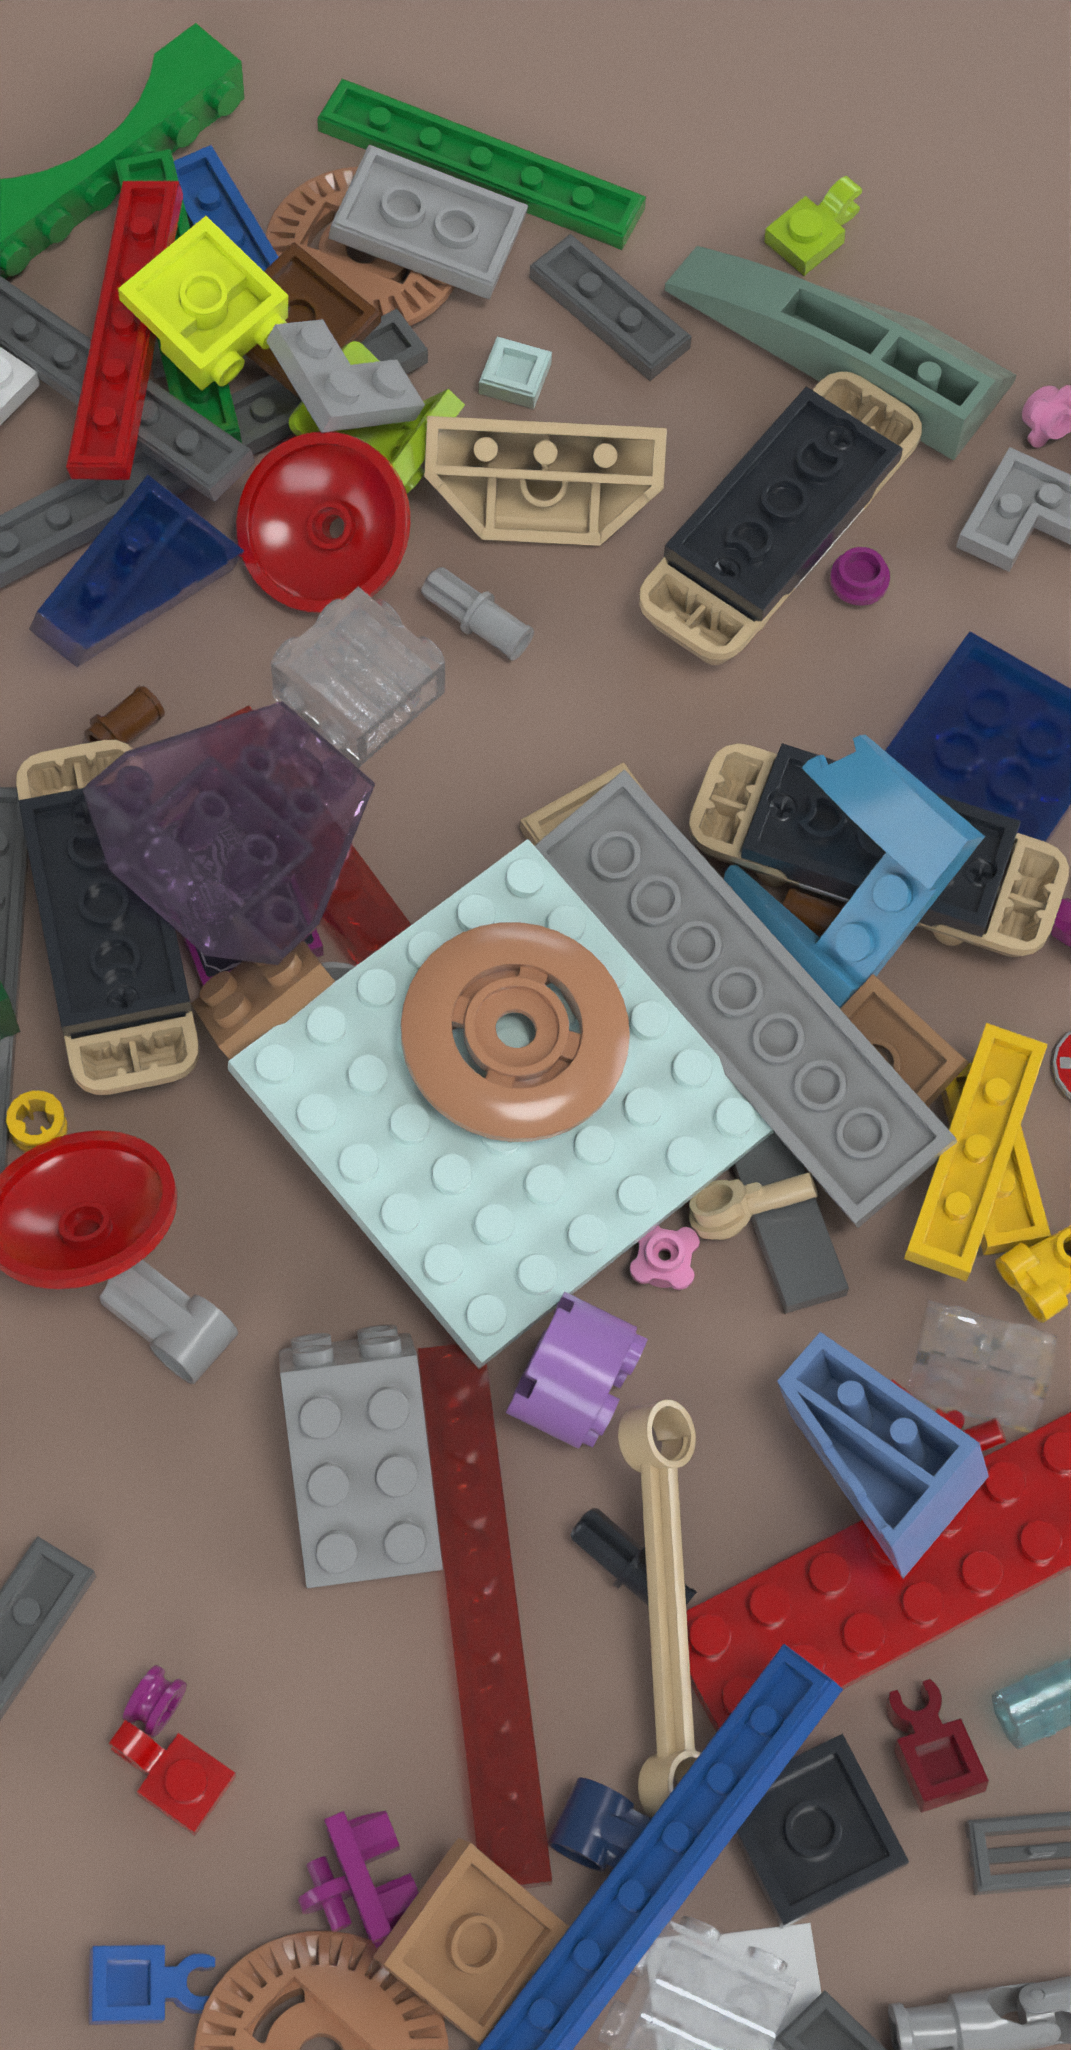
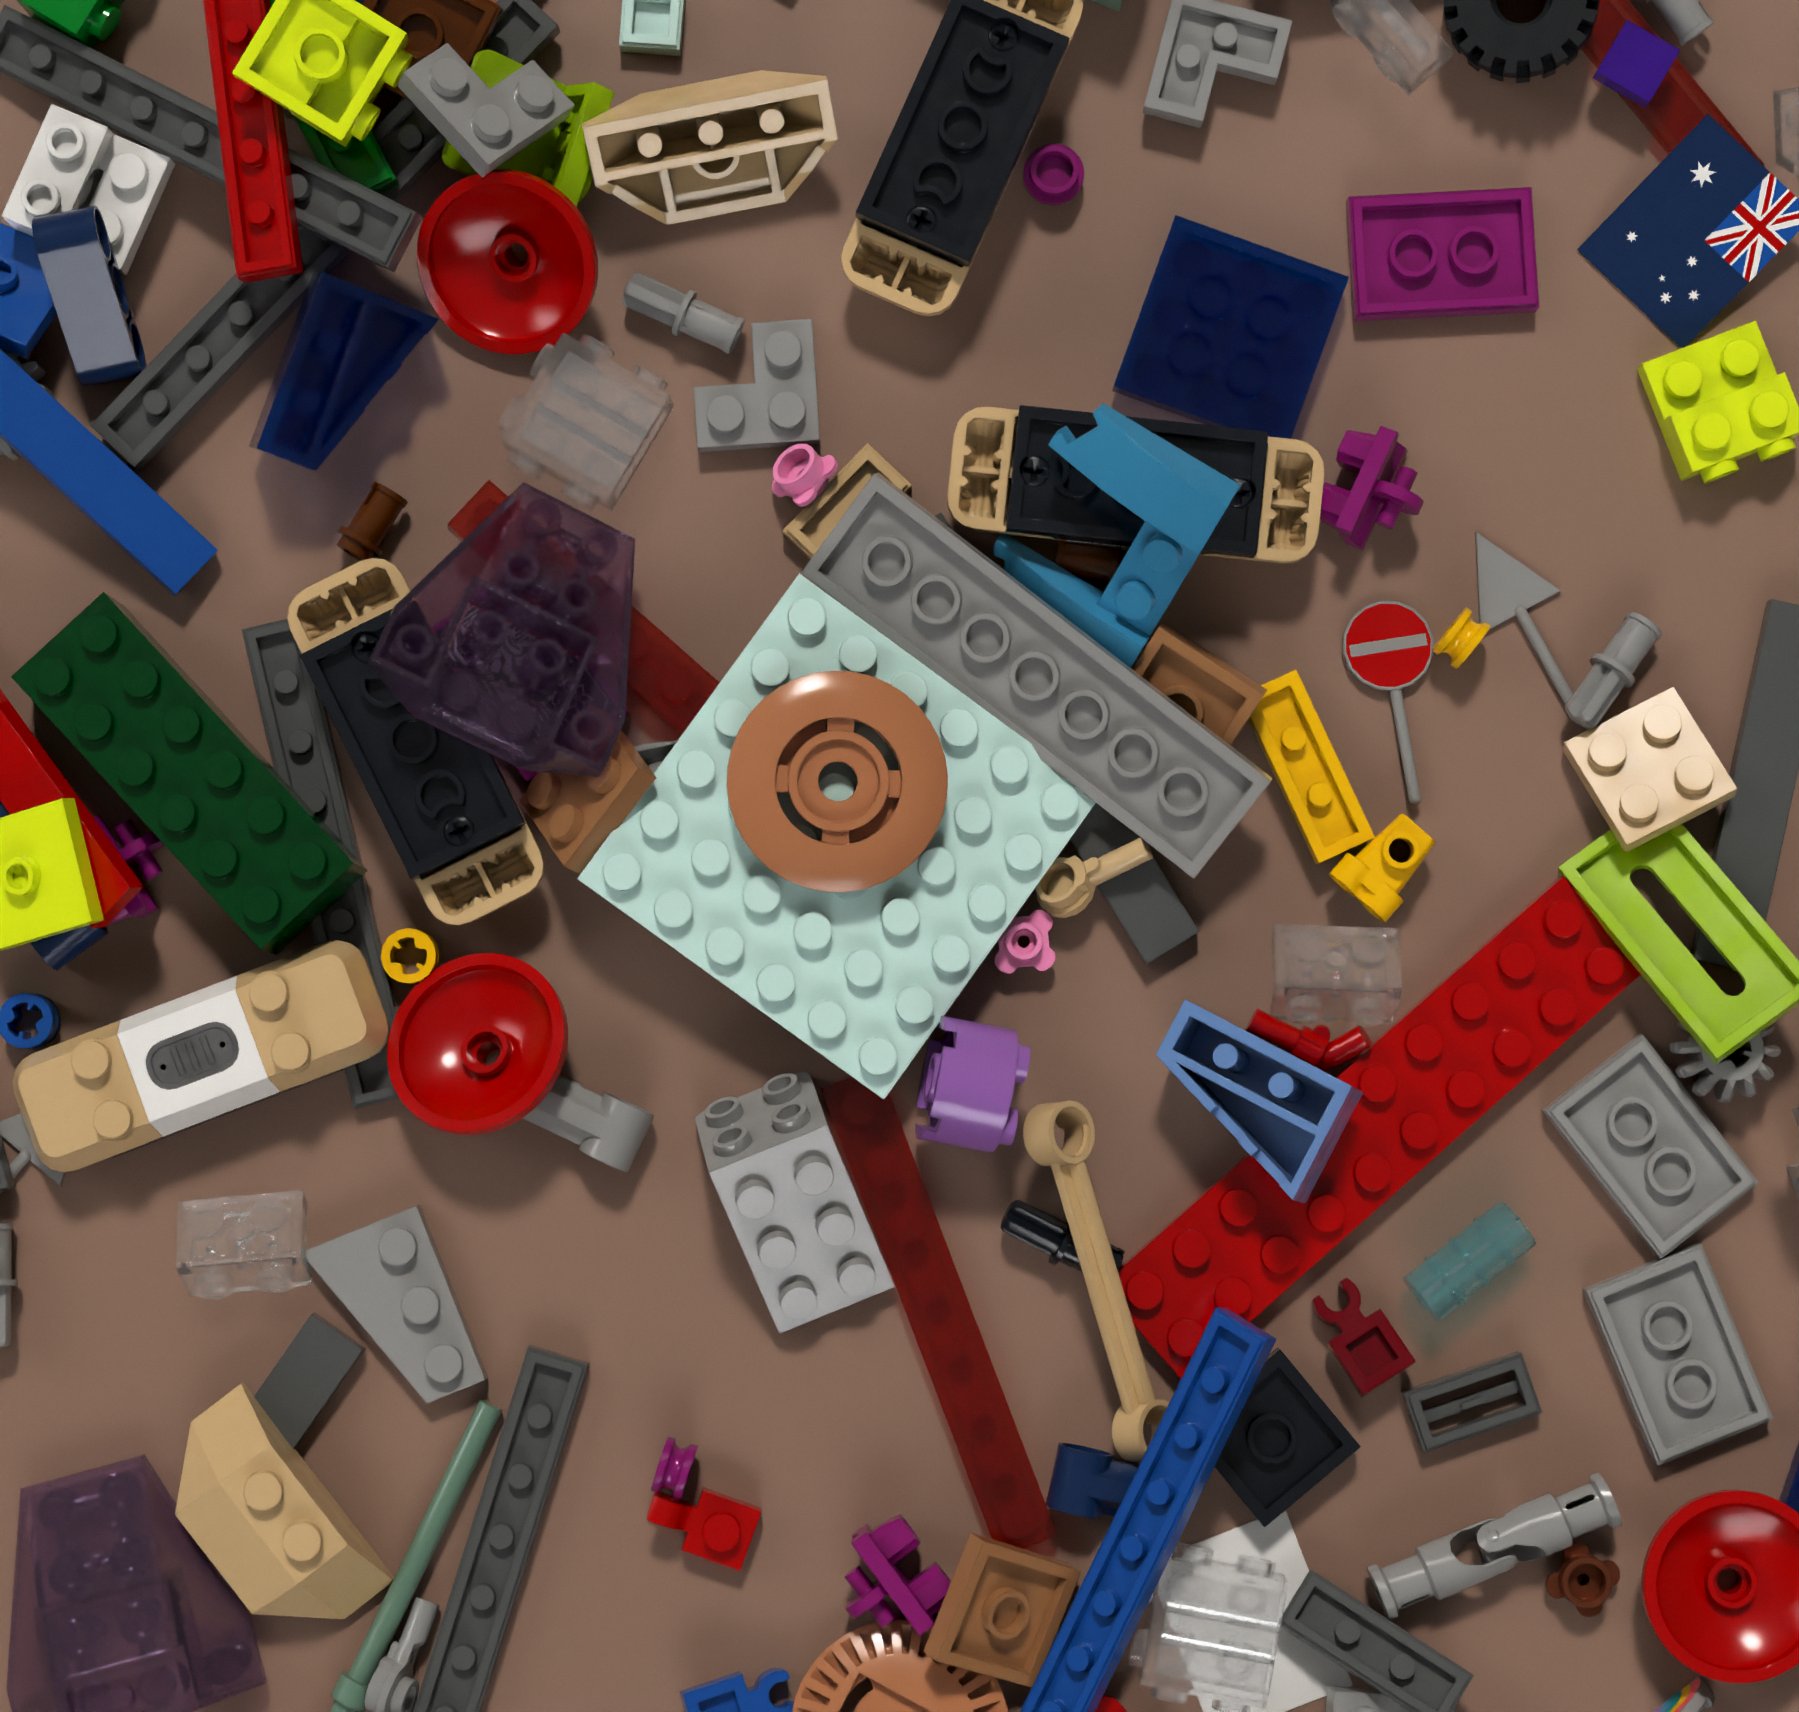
camera: 10 degrees left, 20 degrees up
(536, 717) = (774, 409): none -> light grey plate
(553, 772) = (802, 474): none -> bright pink plate
(973, 1168) = (1296, 761): yellow plate -> none

